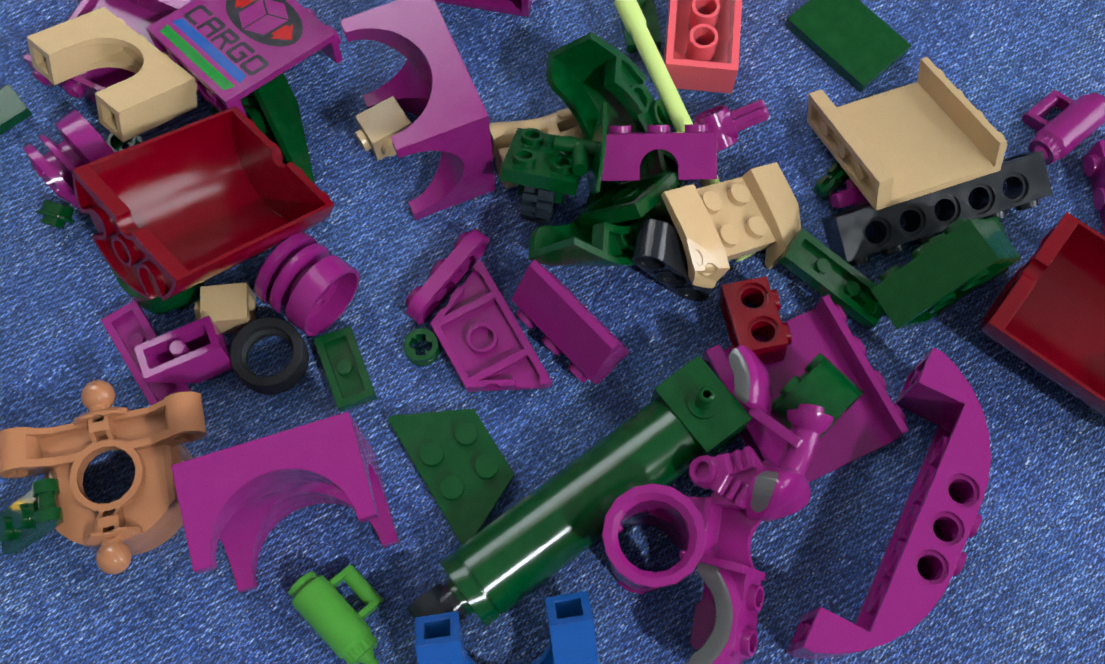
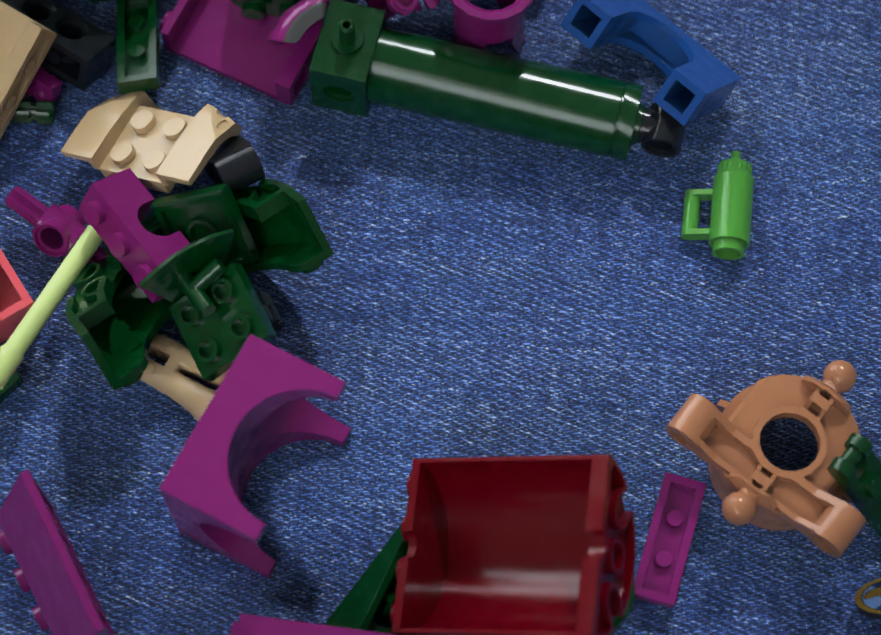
camera: 130 degrees left, 0 degrees up
(185, 354) = (652, 495): magenta slope -> none
(254, 332) = (579, 405): black tyre -> none
(260, 482) = (672, 296): magenta piece -> none
(306, 283) = (495, 427): magenta wheel -> none
(345, 369) = (536, 367): dark green plate -> none
(378, 125) = (290, 520): tan brick -> none
(413, 338) = (467, 311): dark green bush -> none
(446, 276) = (385, 349): magenta plate -> none
(456, 464) = (537, 220): dark green wing -> none
(486, 339) = (413, 279): magenta wing -> none
(567, 325) = (352, 206): magenta slope -> none
(746, 322) = (239, 82): dark red brick -> none

